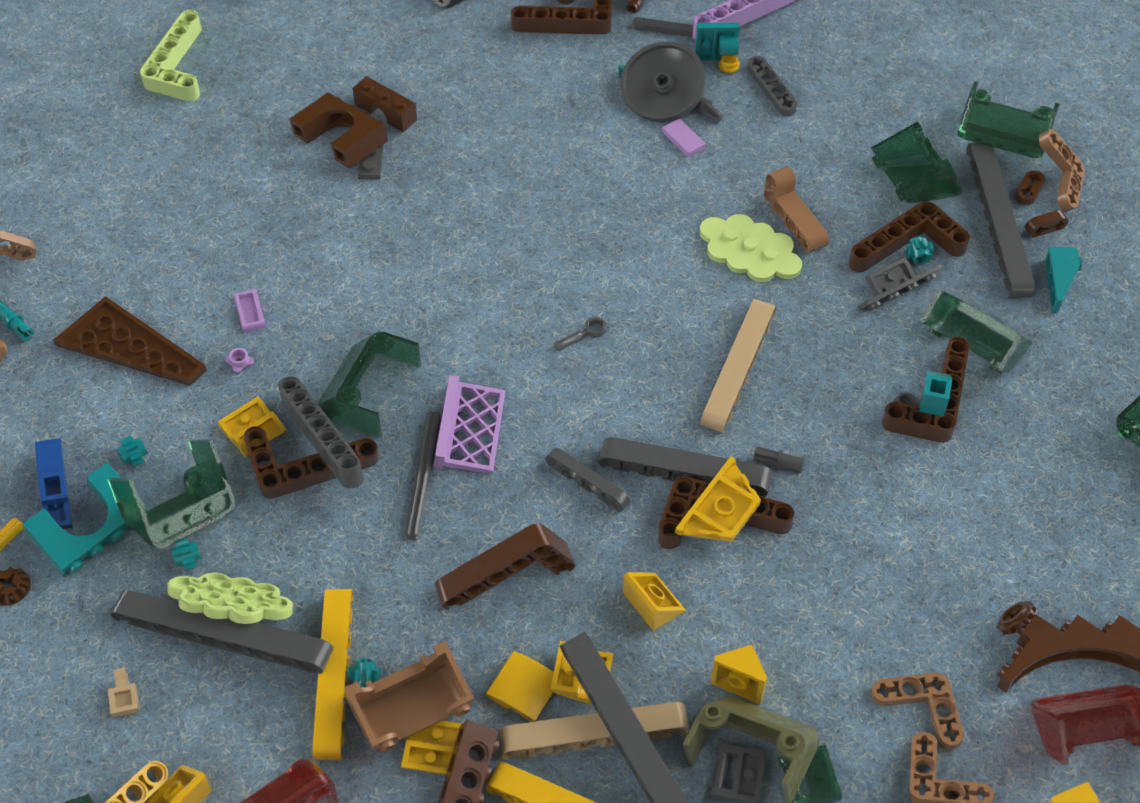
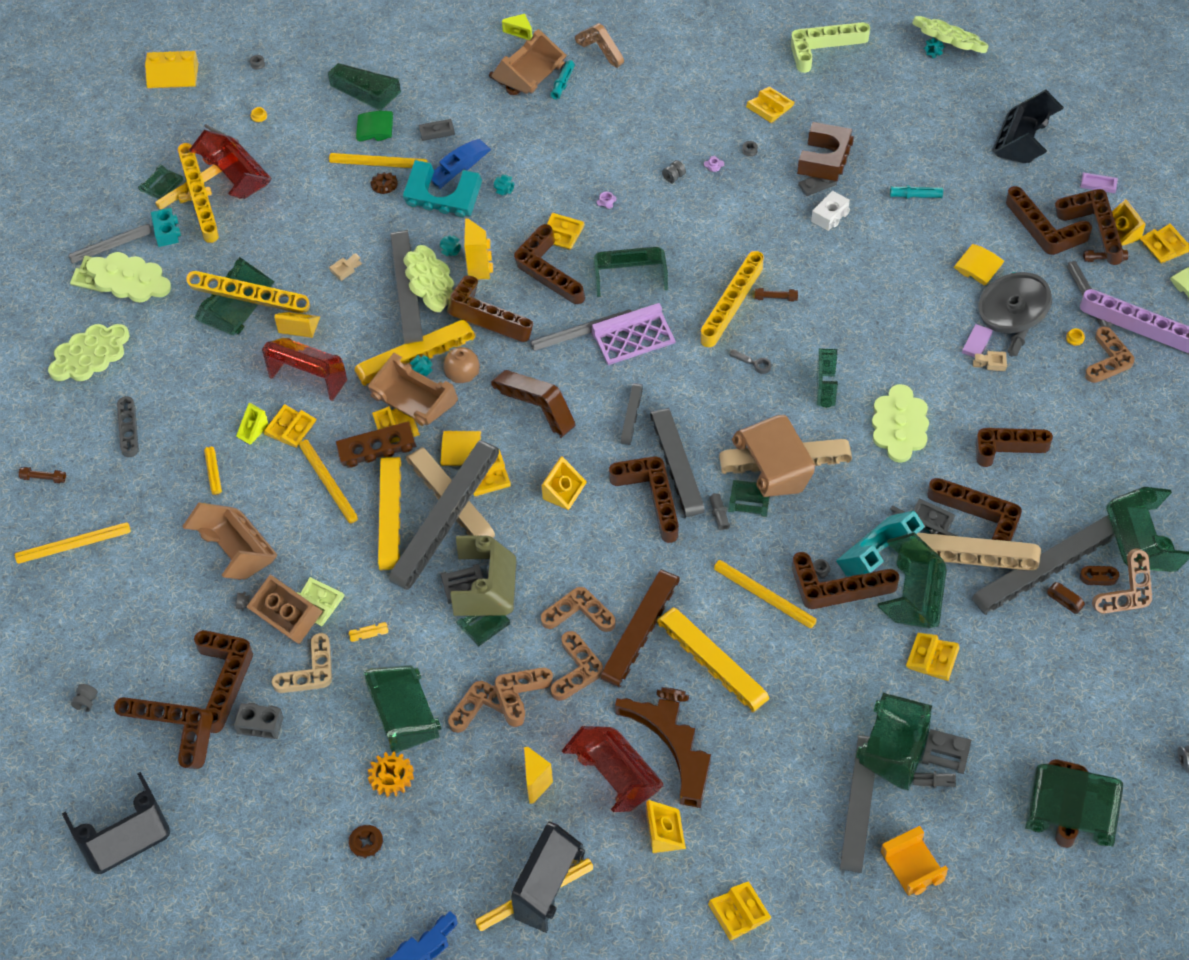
camera: 65 degrees right, 0 degrees up
(123, 339) = (581, 139): reddish brown wing -> none
(203, 503) = (453, 220): clear green windscreen -> none
(220, 140) = (772, 99): none -> yellow slope
(232, 521) = (477, 252): none -> yellow slope
(249, 310) = (648, 186): lavender tile -> none
(252, 274) = (674, 171): none -> dark grey wheel
(269, 198) = (750, 144): none -> dark grey bush
(272, 236) = (714, 164): none -> lavender plate
(321, 432) = (567, 259): dark grey beam -> none
(331, 565) = (466, 307): none -> reddish brown beam
(372, 95) = (869, 163): reddish brown arch -> none
(390, 628) = (461, 365): none -> medium nougat cylinder
(424, 166) = (830, 211): none -> white brick
(446, 93) = (921, 192): none -> teal pin
(485, 309) = (732, 299): none -> yellow beam
(493, 281) = (792, 295): none -> reddish brown bar
(585, 87) = (979, 264): none -> yellow slope
(659, 279) = (826, 367): none -> clear green panel
(716, 40) = (1082, 315): teal plate -> none
(719, 136) = (993, 360): none -> tan plate
(721, 507) = (649, 488): yellow wing -> none
(740, 673) = (532, 551): yellow slope -> none
(743, 360) = (779, 455): none -> medium nougat windscreen
(768, 419) = (747, 492): none -> clear green plate
(772, 46) = (1115, 357): none -> medium nougat beam
(776, 84) = (1072, 371): dark grey beam -> none
(796, 215) = (956, 426): medium nougat beam -> none
(825, 185) = (1010, 440): none -> reddish brown beam
(834, 665) = (578, 604): none -> medium nougat beam
(896, 318) = (865, 554): none -> teal arch
(905, 610) = (639, 627): none -> reddish brown beam
(911, 470) = (765, 594): none -> yellow axle
(915, 167) = (1054, 492): clear green windscreen -> none
(919, 250) = (971, 523): teal gear -> none
(935, 393) = (828, 570): teal slope -> none
(961, 261) = (984, 551): none -> tan beam
(979, 557) = (714, 659): none -> yellow beam
(1061, 270) = (1017, 624): teal slope -> none
(1064, 362) = (924, 653): none -> yellow slope

